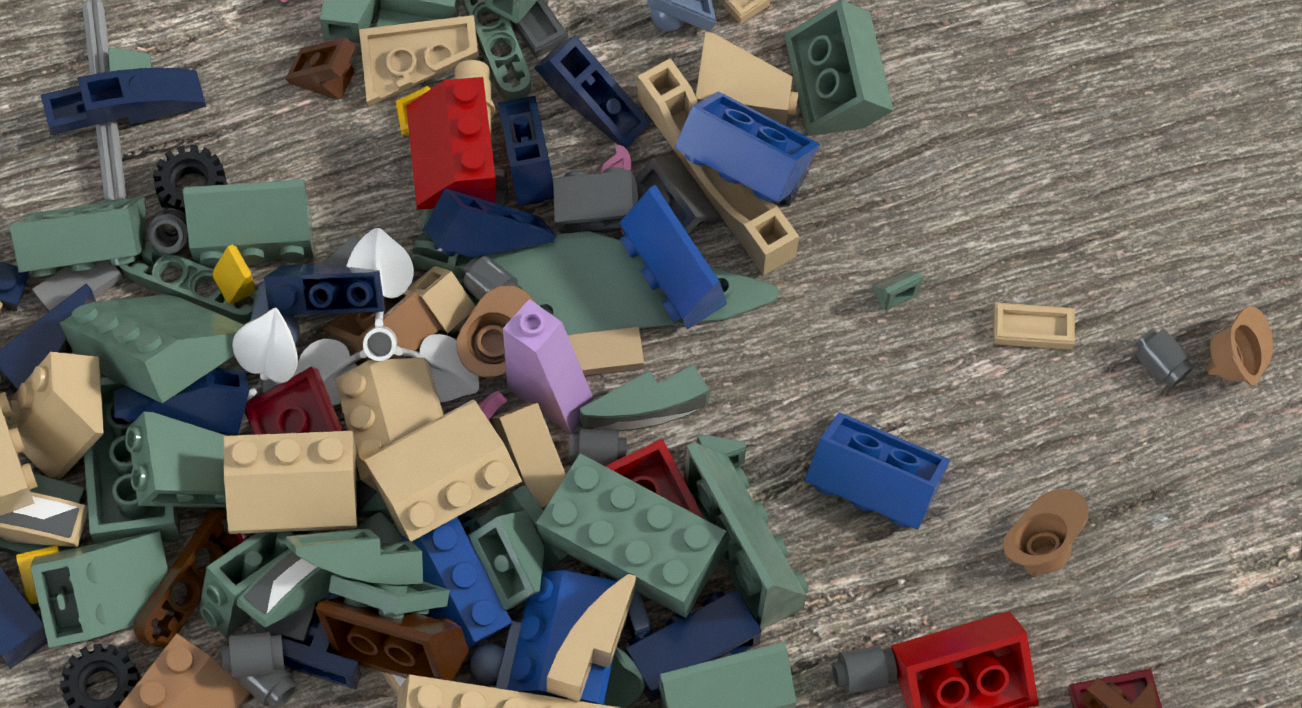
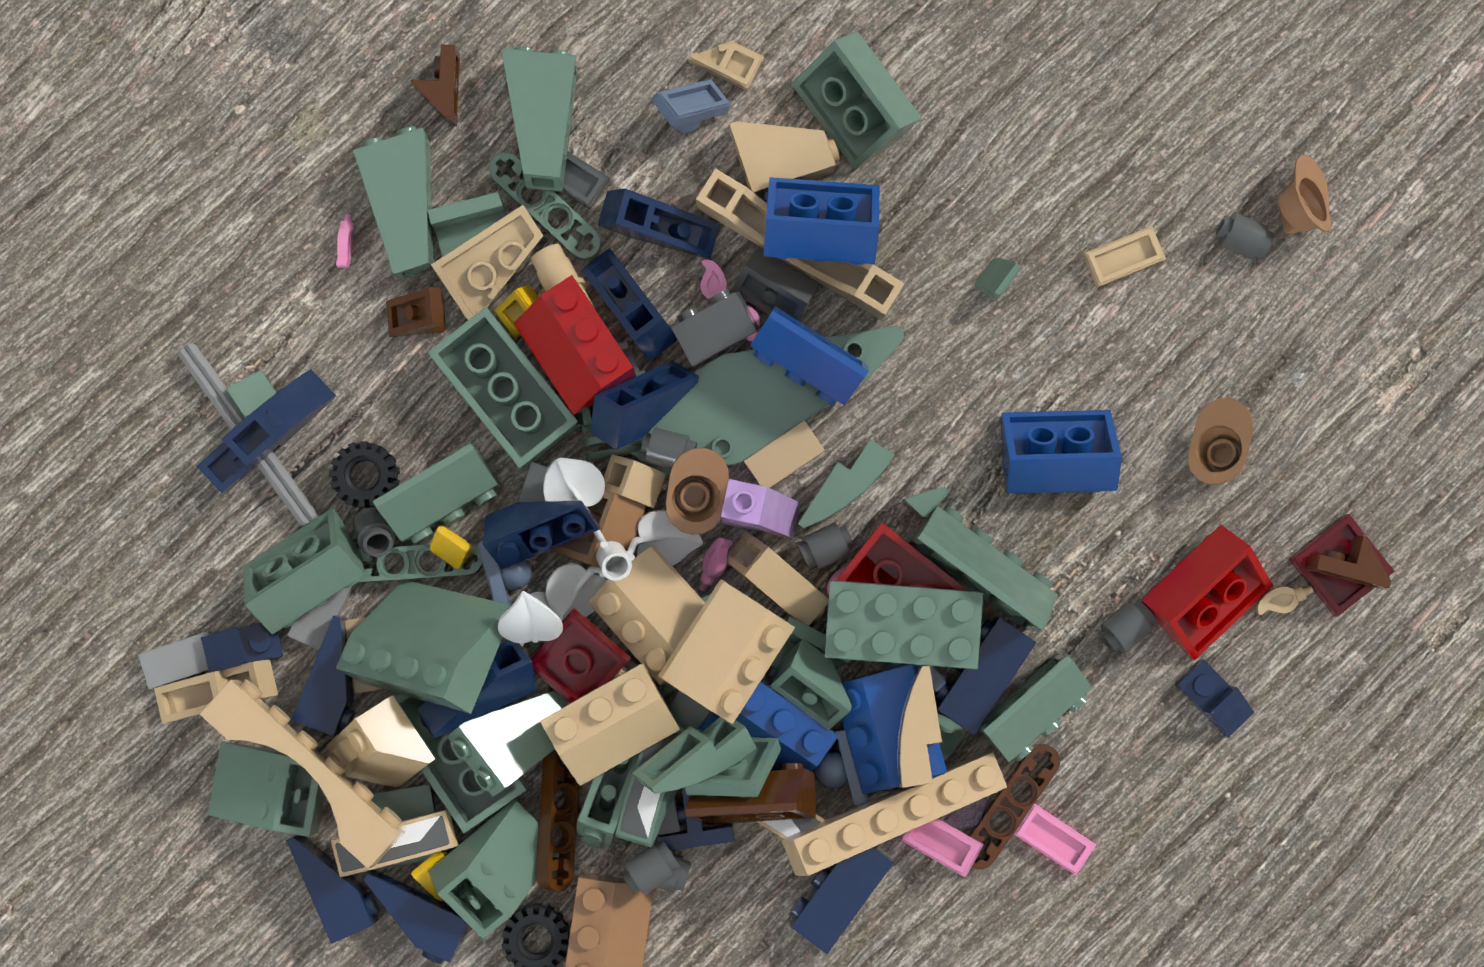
camera: 25 degrees left, 20 degrees up
(365, 161) = (504, 389): none -> sand green brick

